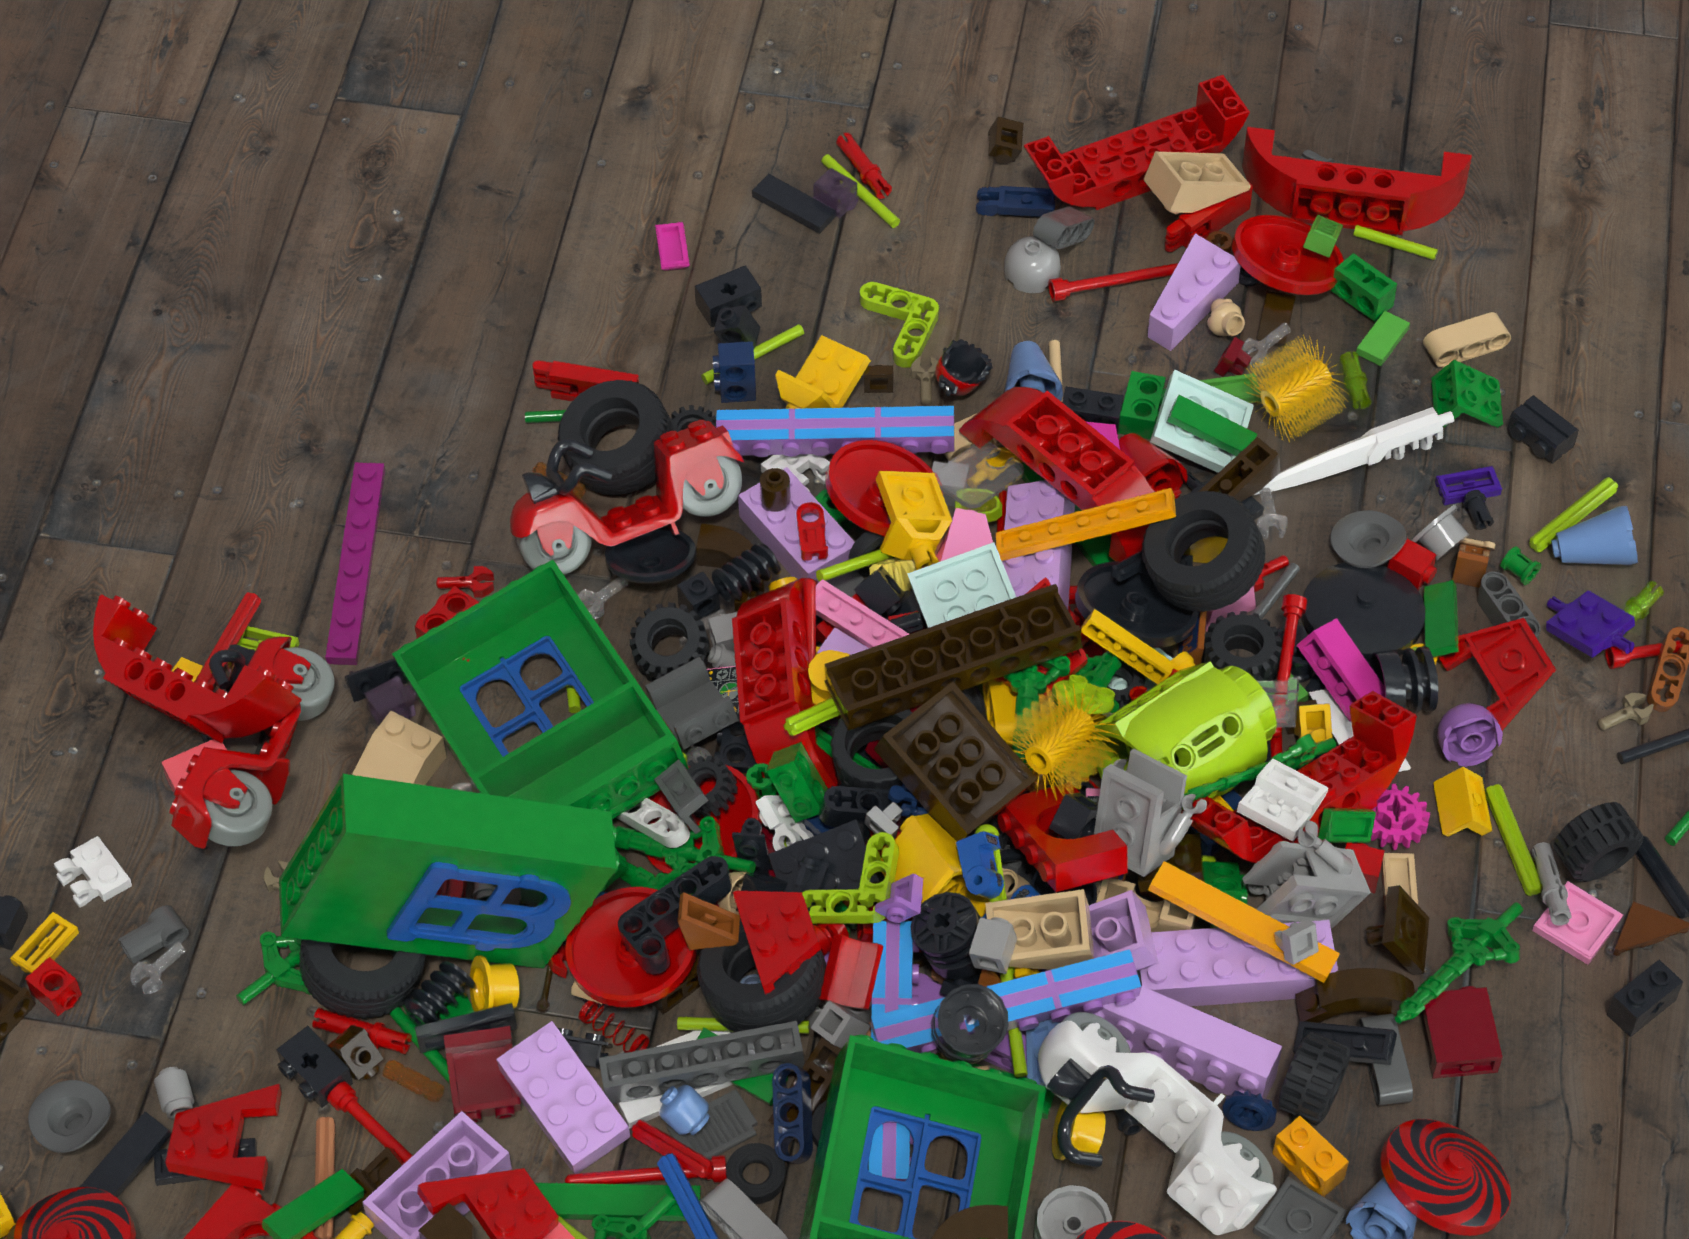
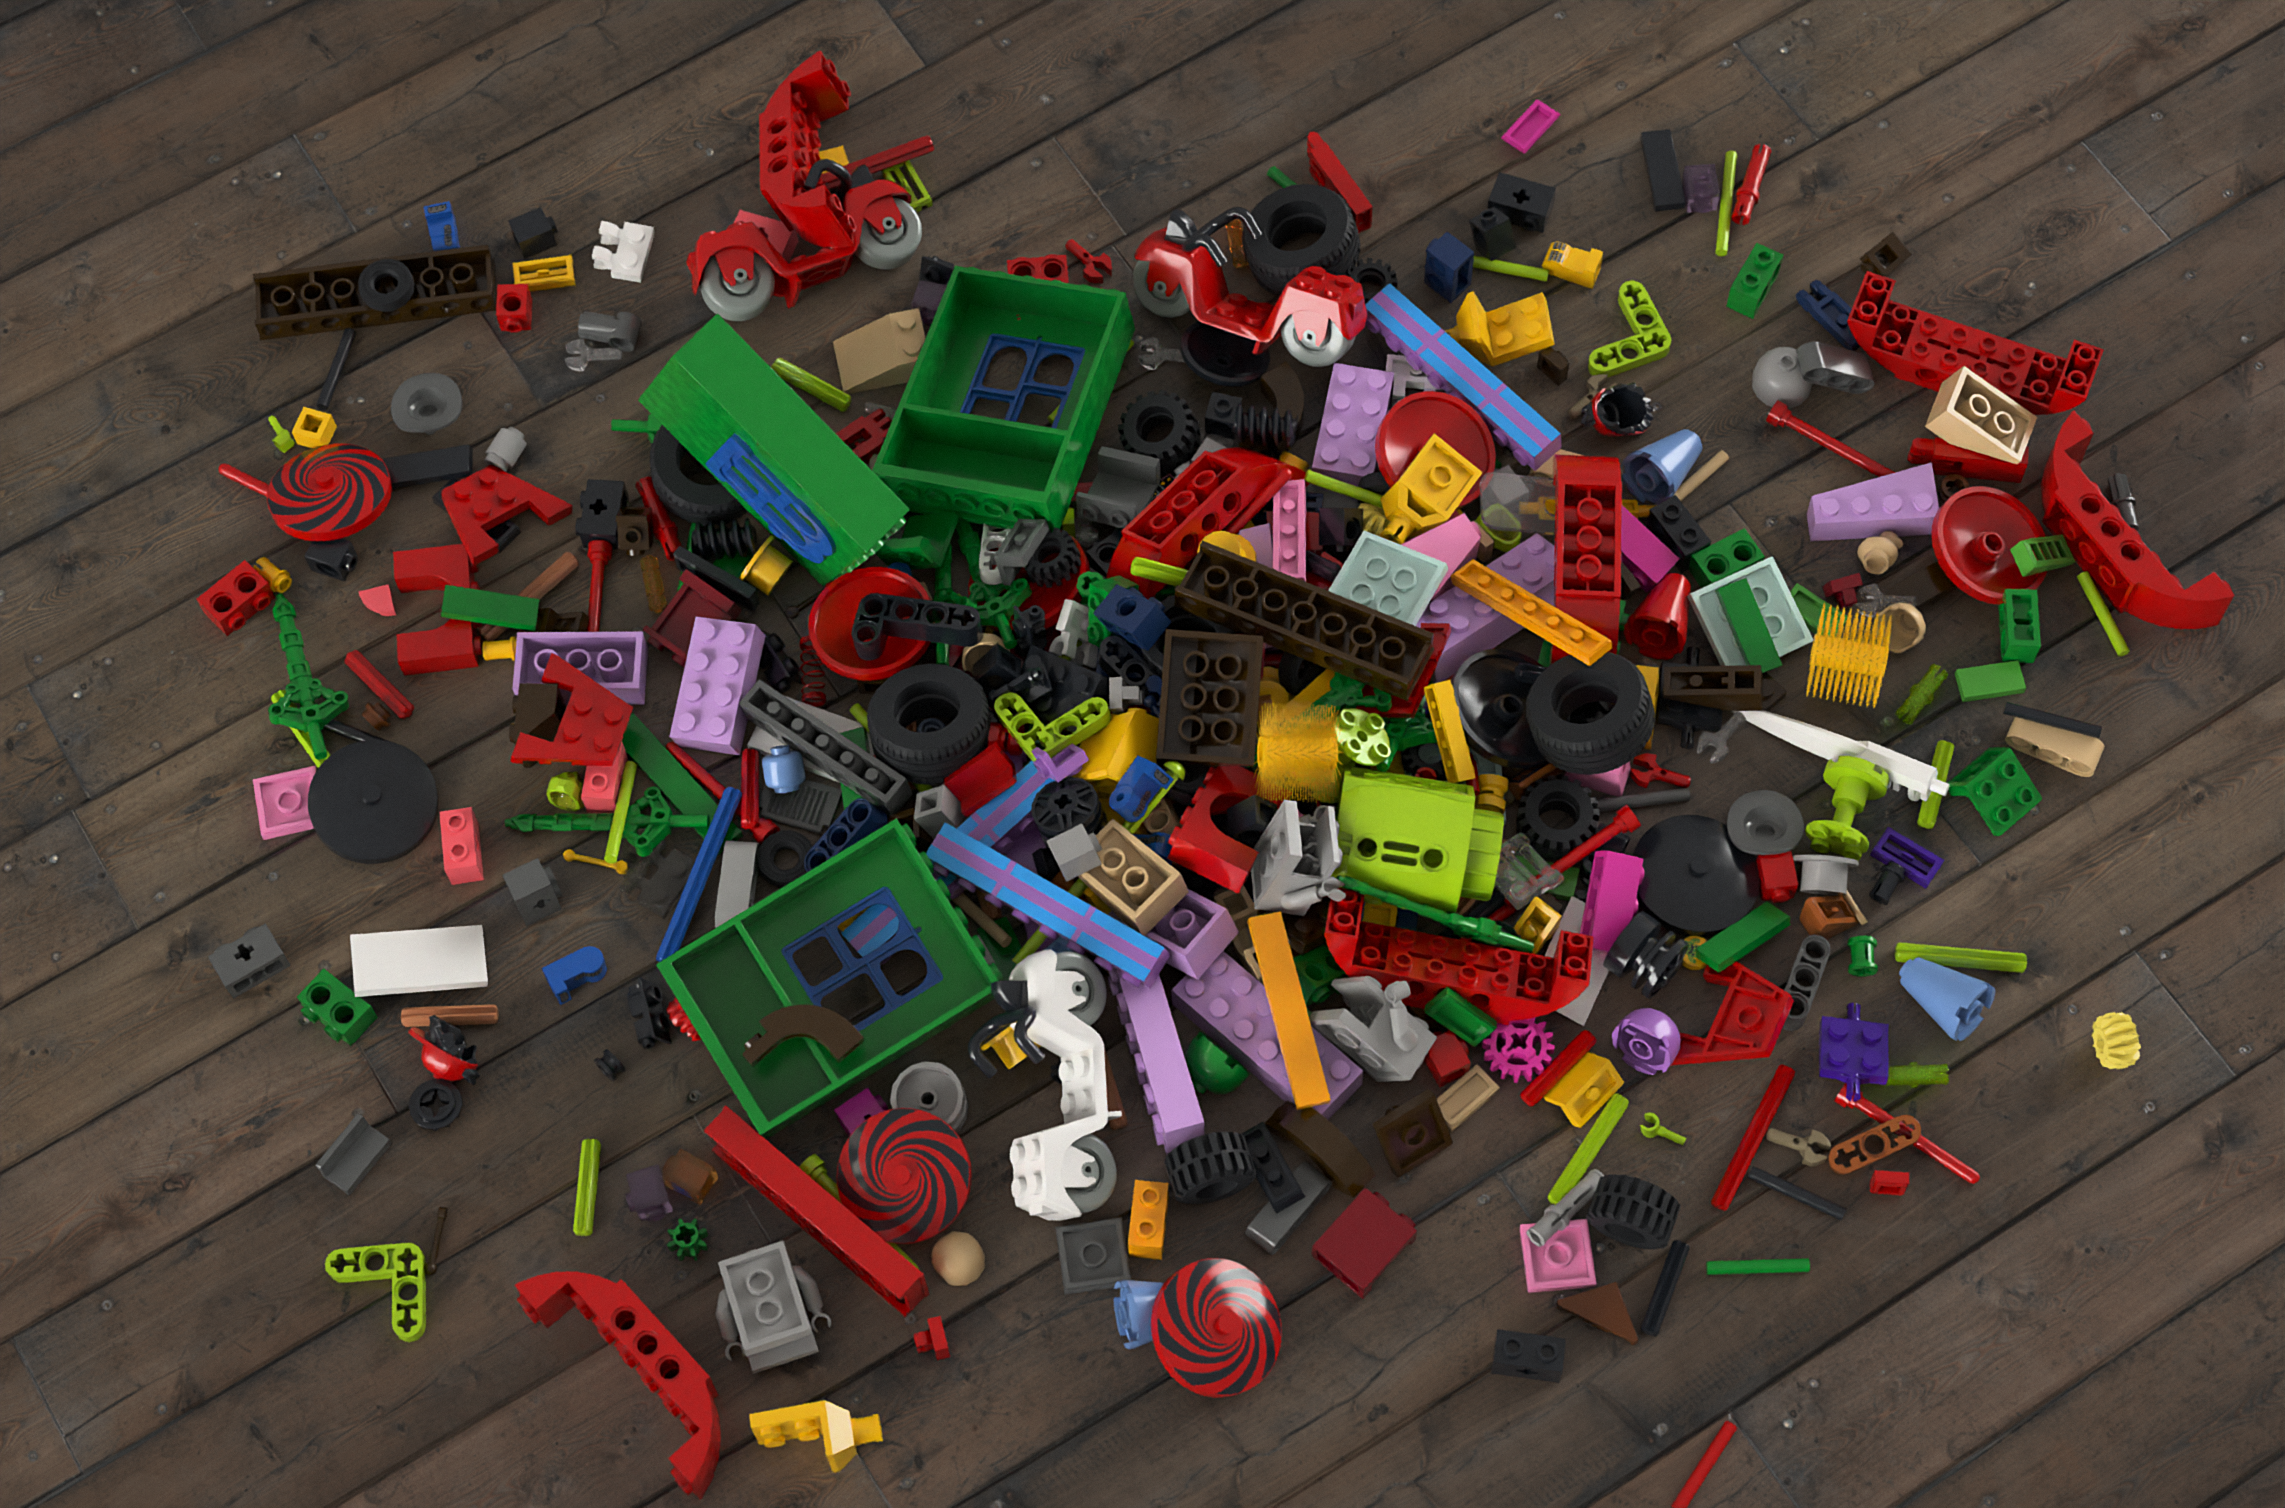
camera: 50 degrees right, 10 degrees up
(355, 564) = (1032, 178): magenta plate -> none
(706, 924) = (919, 651): dark orange slope -> none
(775, 489) = (1351, 380): dark brown brick -> none
(777, 932) = (954, 704): red wing -> none
(811, 534) = (1343, 438): red piece -> none
(812, 305) = (1573, 264): none -> yellow leg
(847, 763) = (1133, 616): none -> dark blue brick
(943, 220) = (1754, 280): none -> green brick
(978, 1007) = (969, 889): black wheel -> none
(1232, 1008) = (1213, 1067): none -> green cylinder
(1248, 1119) = (1145, 1145): dark blue gear -> none
(1282, 799) = (1417, 949): white slope -> none
(1290, 335) = (1906, 626): none -> tan hair
(1298, 941) = (1301, 1061): light grey tile -> none
(1392, 465) = (1853, 785): none -> lime piece
(1430, 793) = (1558, 1068): none -> red axle
(1446, 445) = (1941, 761): none -> lime axle
(1455, 322) = (2052, 720): none -> black bar
(1465, 953) = (1440, 1194): green bar -> none
(1530, 781) = (1659, 1130): none -> lime hand
(1542, 429) = (2020, 868): black brick -> none
(1596, 736) = (1753, 1137): none -> red axle

